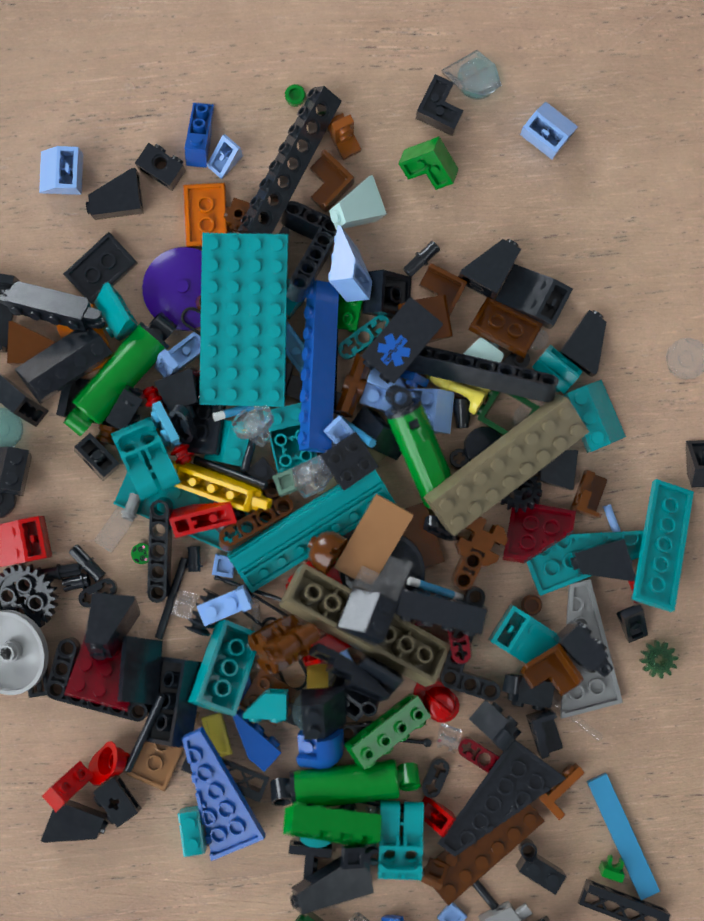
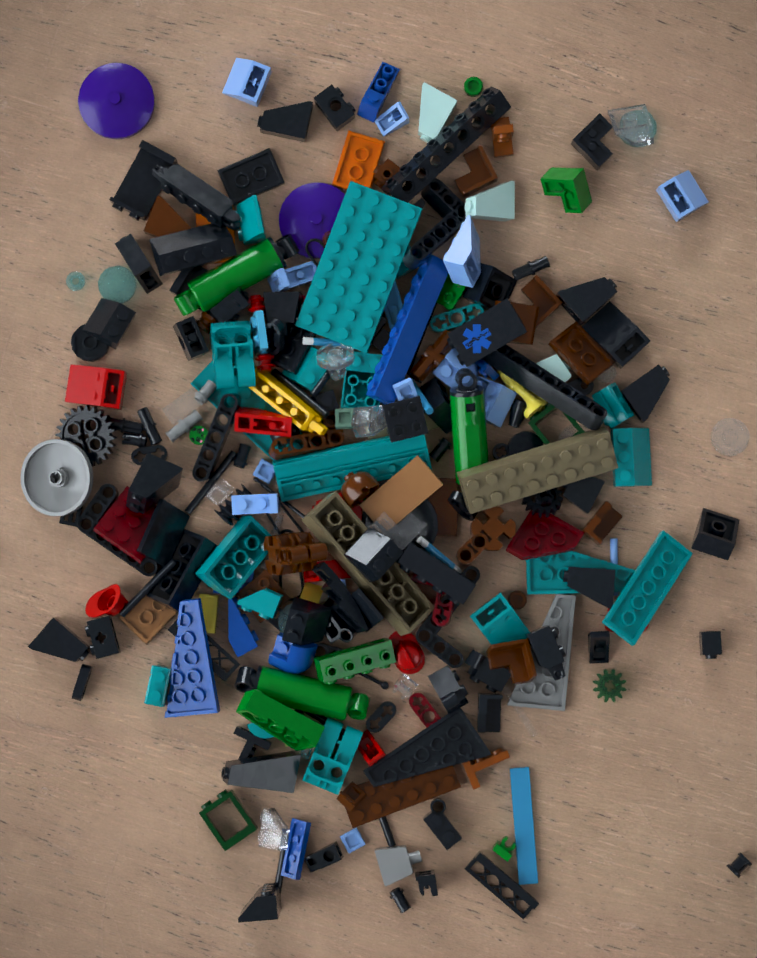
camera: 30 degrees right, 0 degrees up
(67, 786) = (67, 608): red brick -> none
(111, 853) = (81, 683): none -> black beam
(122, 549) = (184, 425): none -> light grey pin
(265, 133) = (434, 112): none -> light aqua slope
(355, 855) = (289, 754): black plate -> none
(396, 478) = (440, 449): none -> black pin

